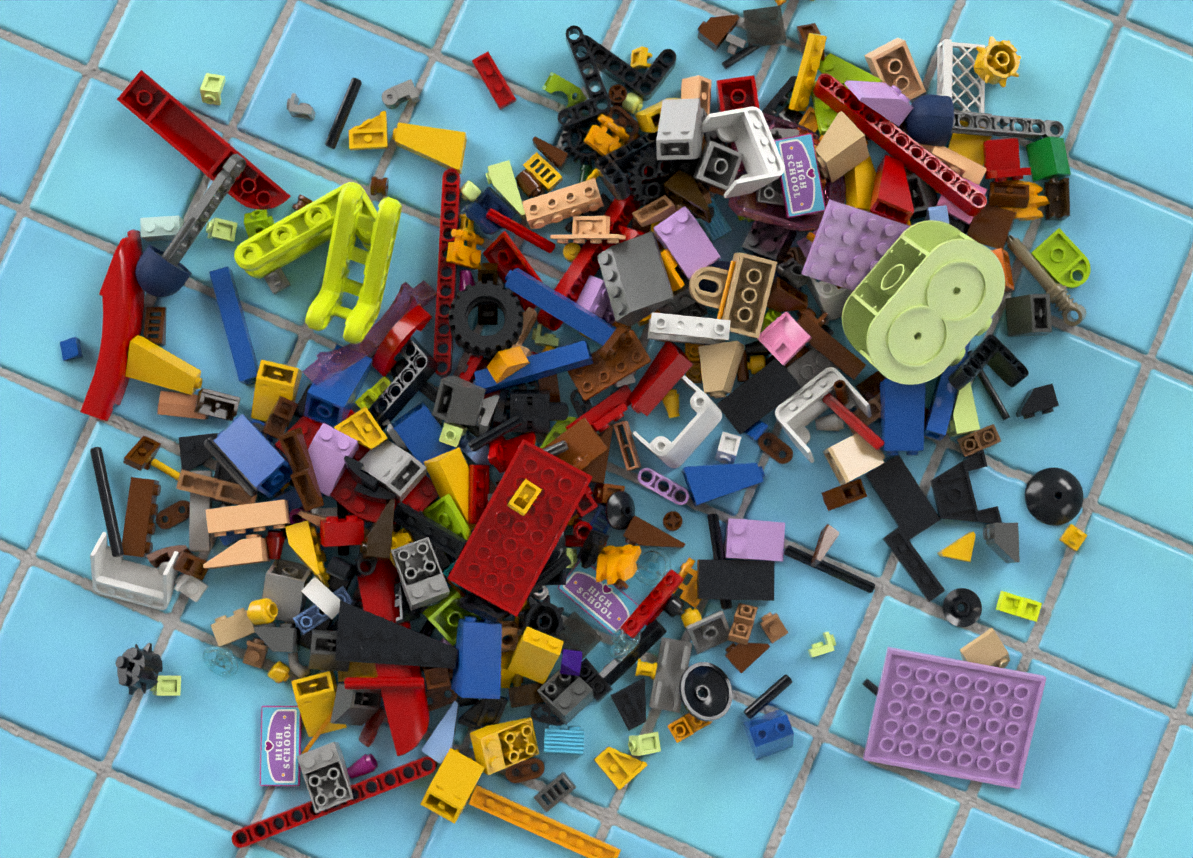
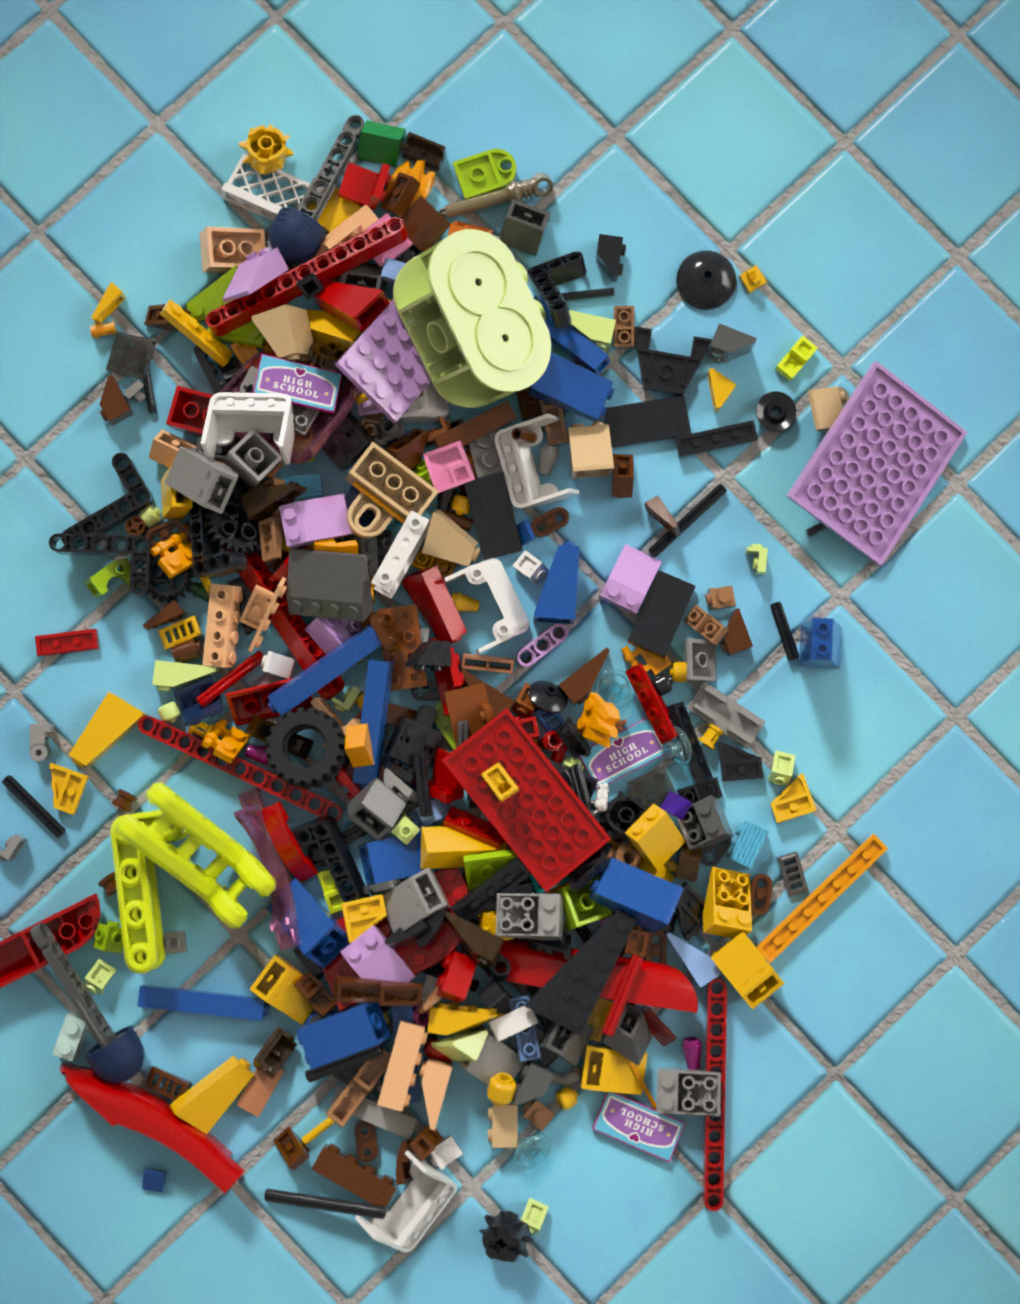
camera: 70 degrees left, 0 degrees up
(193, 451) = (310, 1095): black wing -> none
(286, 562) = (462, 1046): none -> yellowish green slope
(548, 266) = (278, 665): none -> white slope
(551, 594) = (602, 797): none -> white axle
(571, 251) = (272, 638): yellow piece -> none
(611, 391) = (431, 655): none -> black slope
(639, 58) = (108, 489): yellow tile -> none
(674, 522) = (579, 647): reddish brown wheel -> none
(686, 726) = (780, 716): light orange slope -> none
(714, 691) = (760, 680): black dish -> none
(717, 547) = (622, 618): black axle -> none
(836, 189) = (326, 354): none -> dark brown gear
(853, 421) = (556, 436): red axle -> none
(891, 150) = (310, 285): none -> black slope

